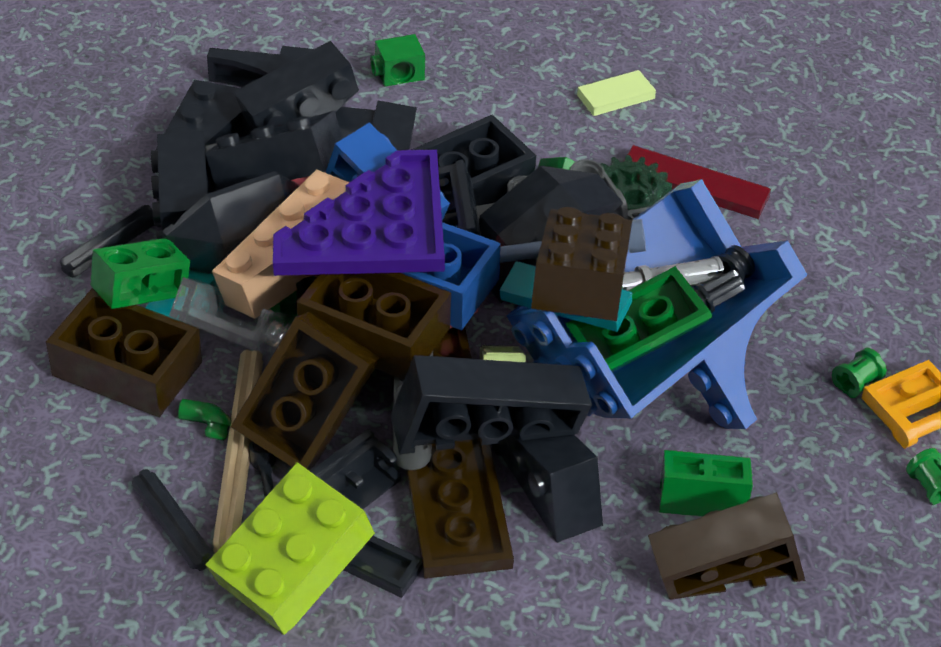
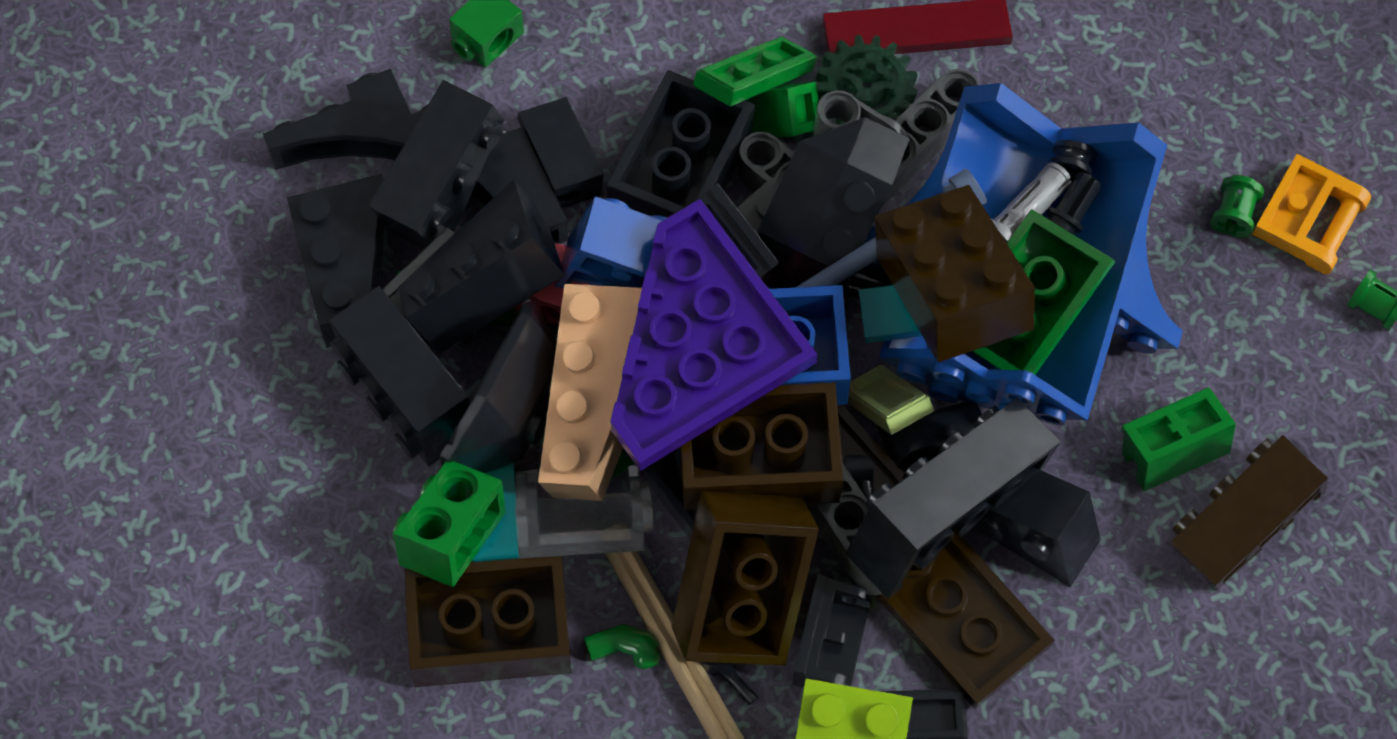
camera: 30 degrees left, 20 degrees up
(117, 234) = (340, 471): black axle -> none
(550, 141) = (754, 71): none -> green tile

